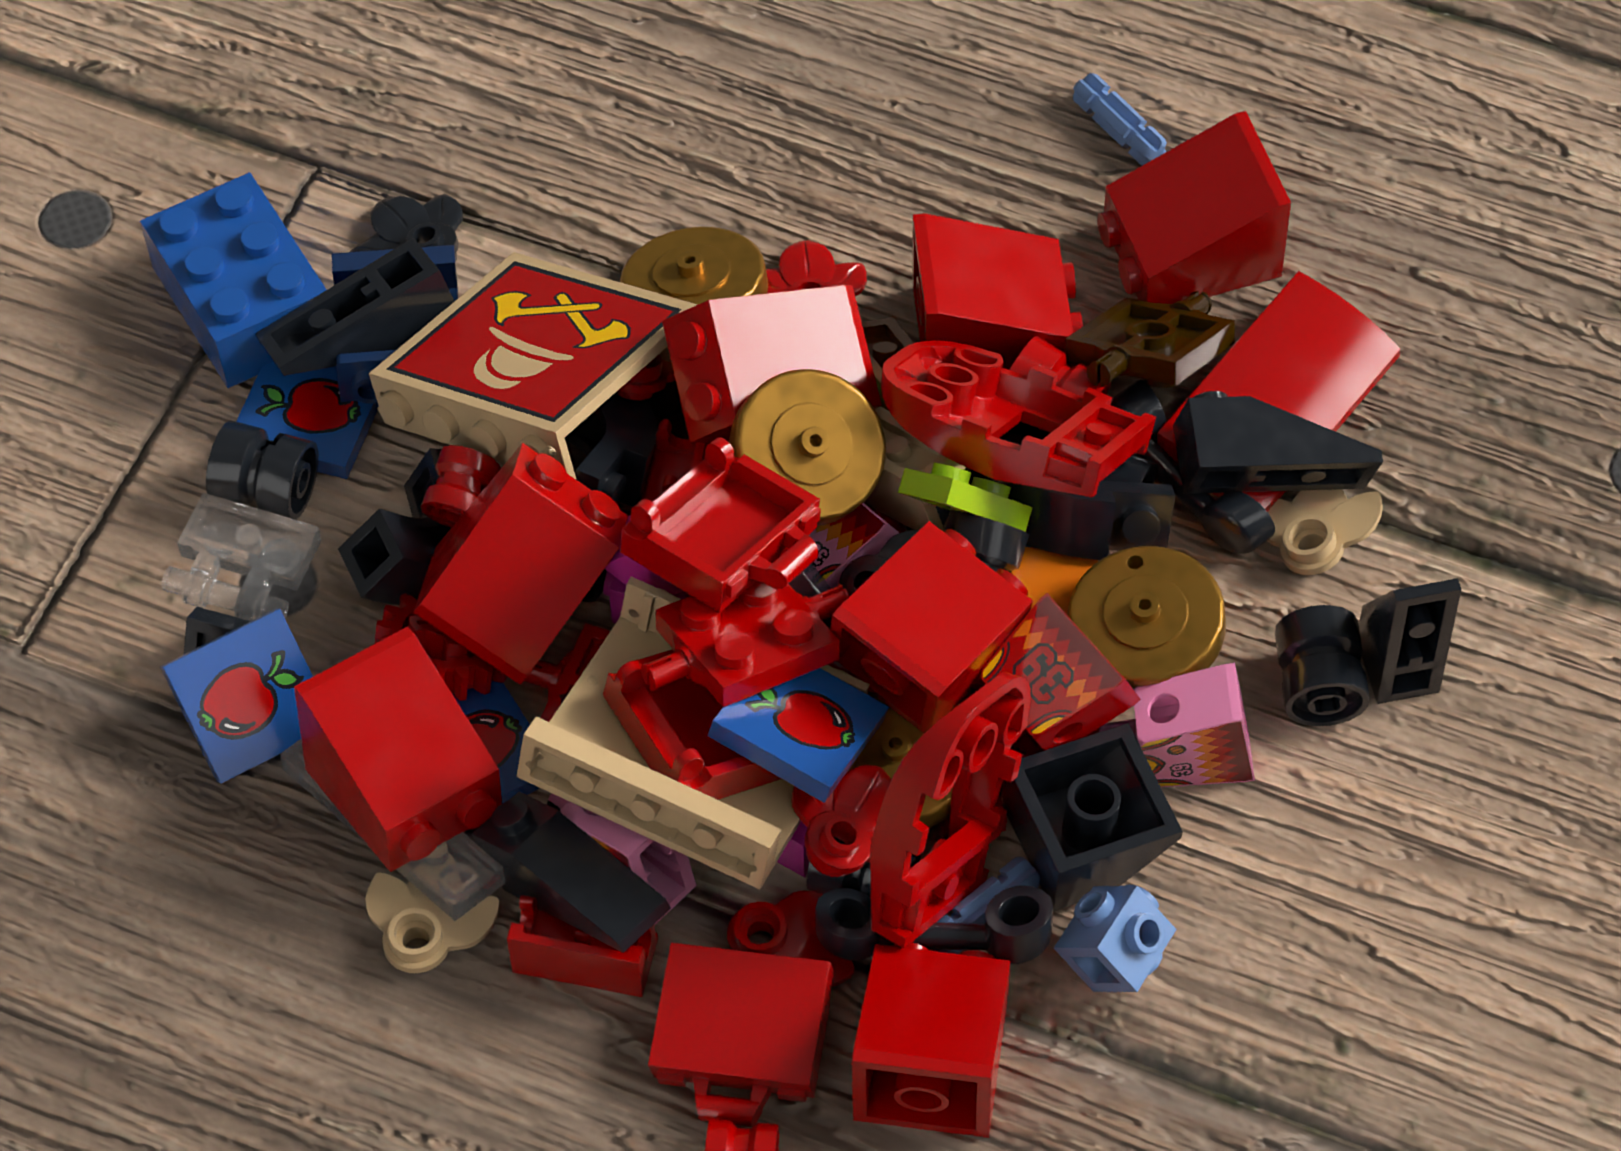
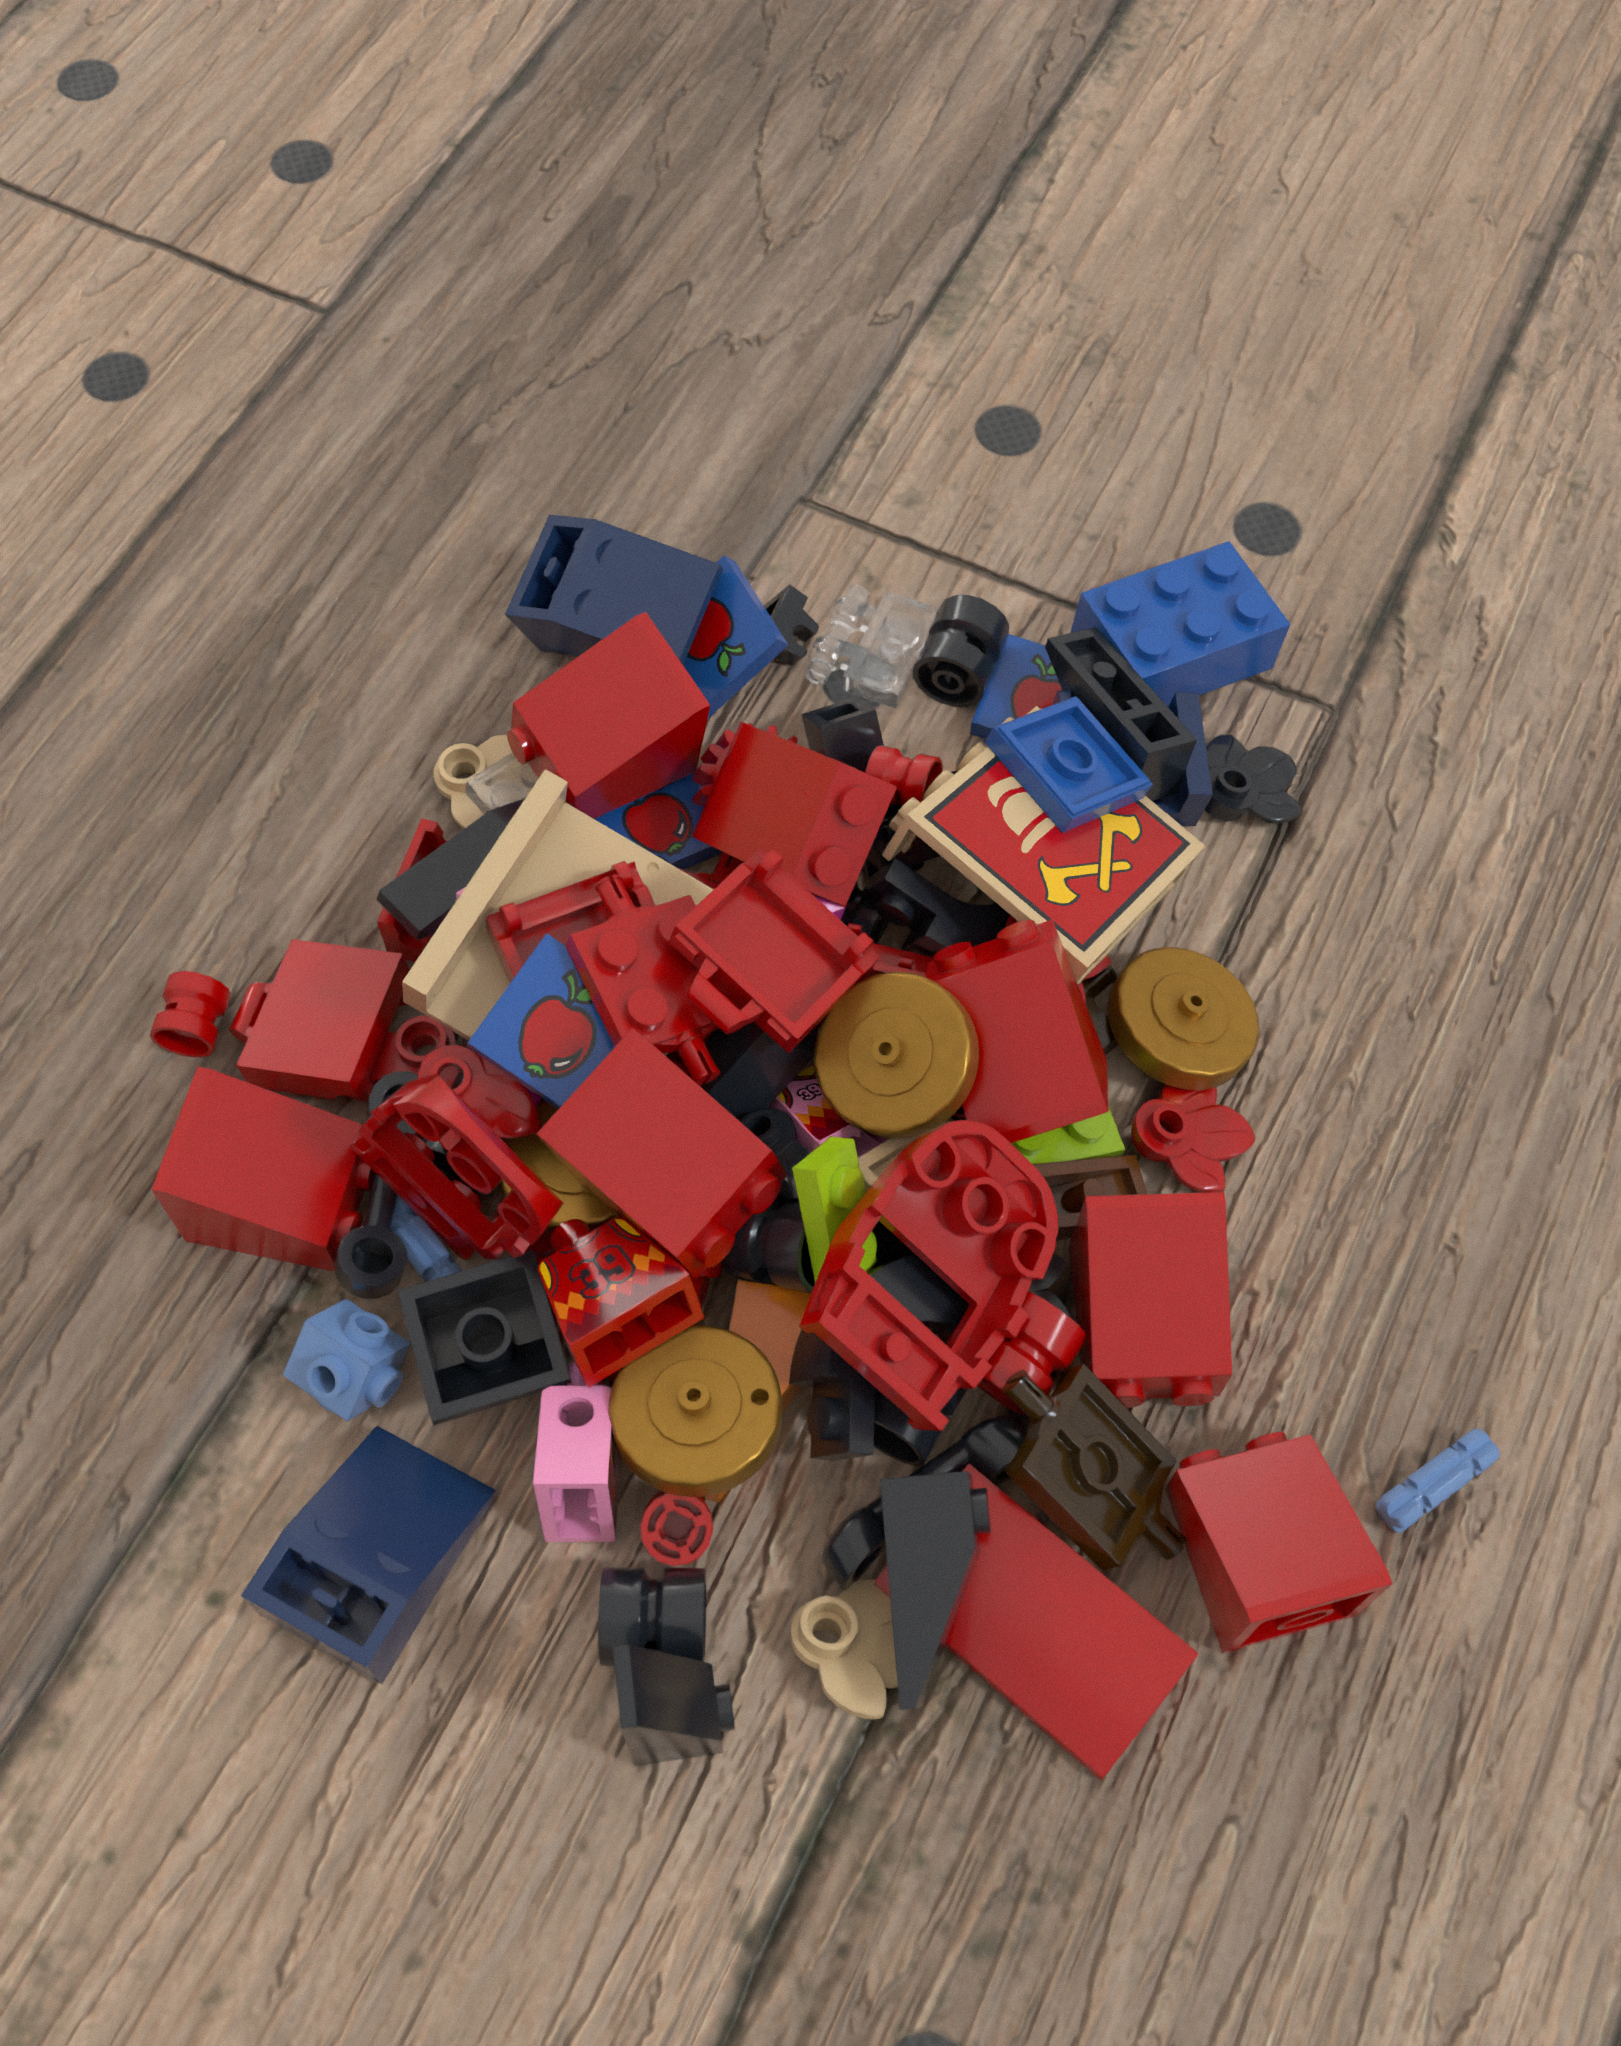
camera: 90 degrees right, 5 degrees up
(205, 779) = (598, 577): none -> dark blue slope
(449, 337) = (1068, 763): none -> blue tile
(1251, 645) = (674, 1517): none -> red wheel
(1296, 895) = (369, 1552): none -> dark blue slope

